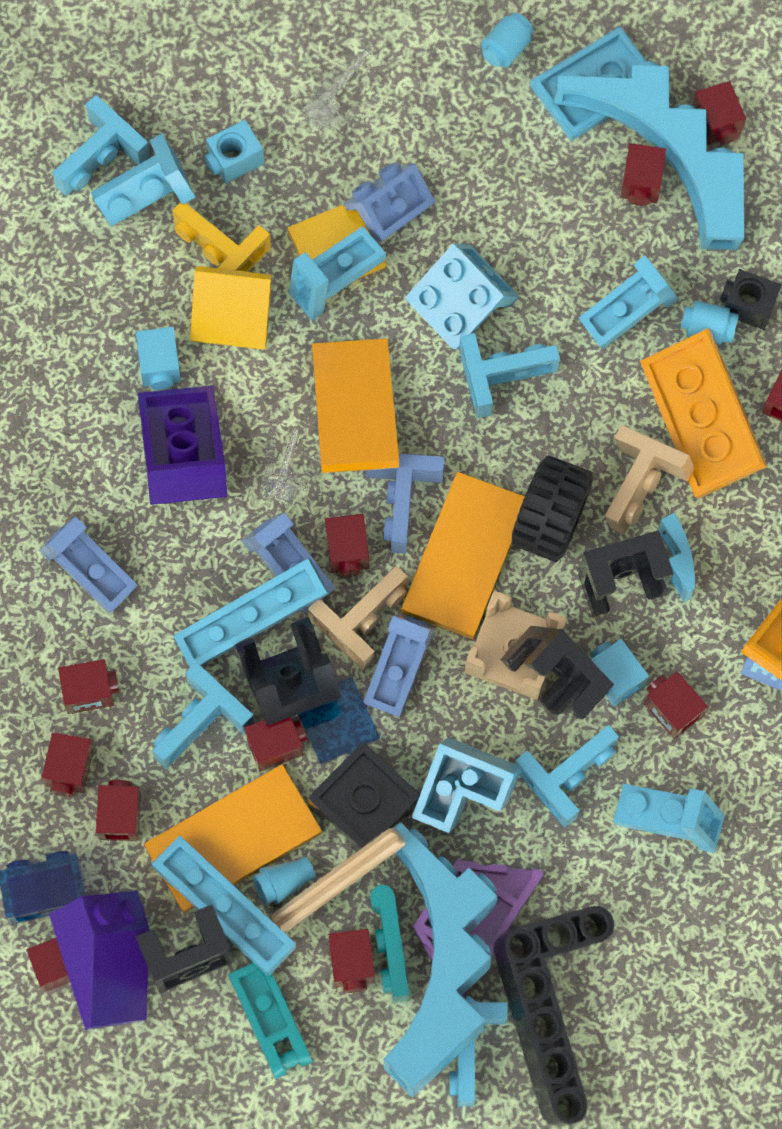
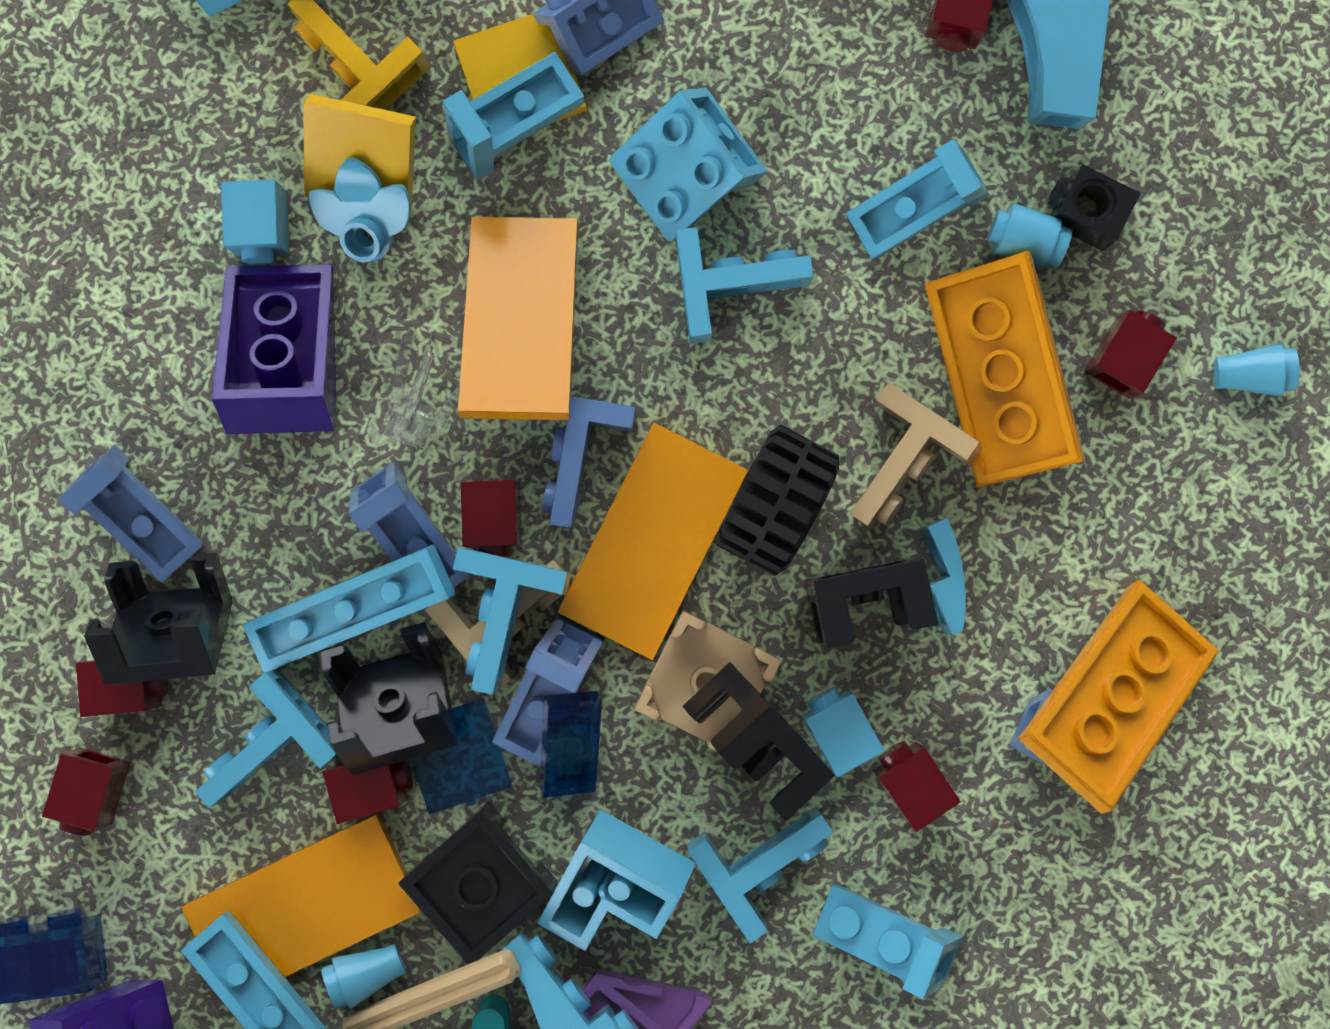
camera: 15 degrees right, 15 degrees up
(118, 811) = (148, 863): dark red brick -> none
(119, 641) = (163, 630): none -> black panel
(235, 338) = (361, 204): none -> medium azure plate
(370, 573) = (500, 609): none -> medium azure bracket
(421, 695) = (570, 743): none -> clear blue tile

